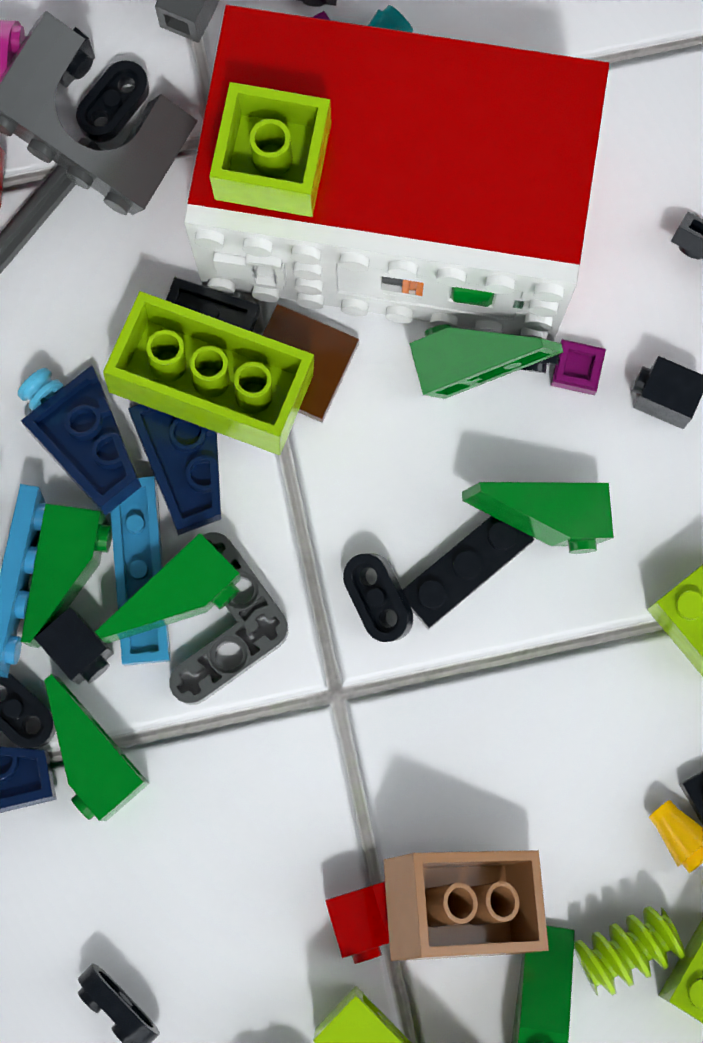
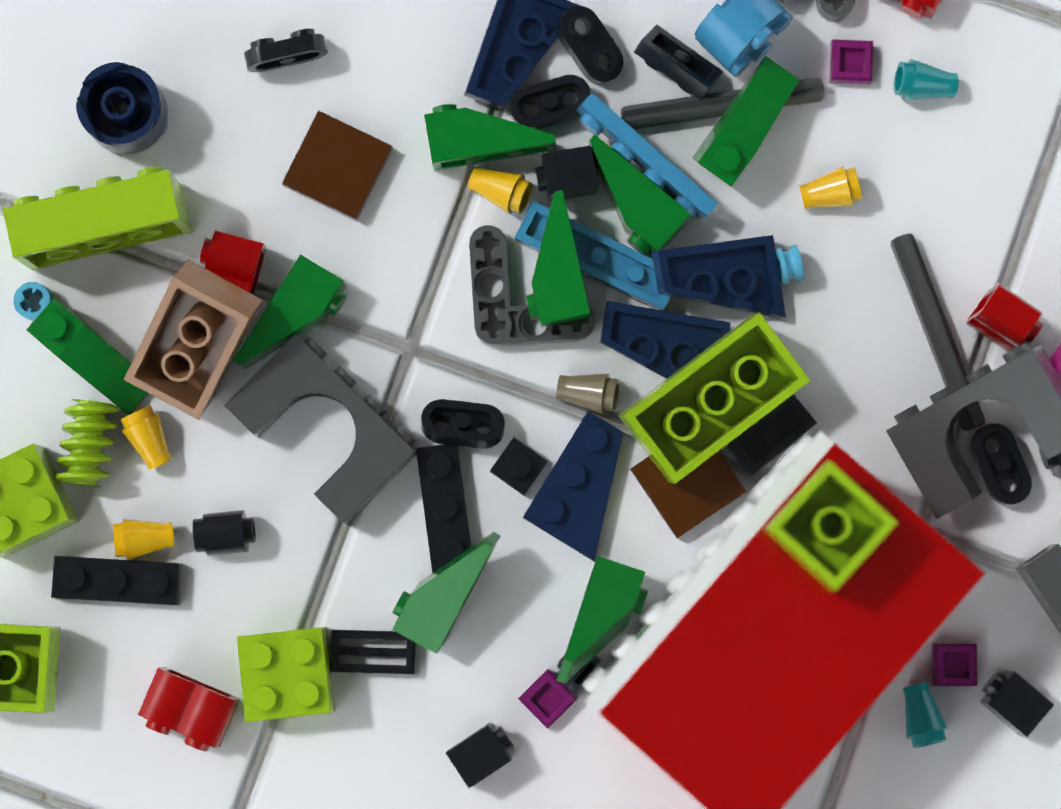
camera: 125 degrees right, 5 degrees up
(128, 702) = (503, 189): none -> yellow cone
(201, 881) = (337, 165): none -> reddish brown tile
(273, 499) = (591, 391): none -> dark tan cone
(362, 827) = (297, 307): none -> green slope
(367, 457) = (578, 487): none -> dark blue wing
(384, 523) = (518, 466): none -> black plate
(454, 660) = (301, 373): none -> dark grey arch
(583, 896) = (147, 436): none -> yellow cone
(627, 759) = (223, 533): none -> black brick
(658, 543) = (336, 651): none -> black tile

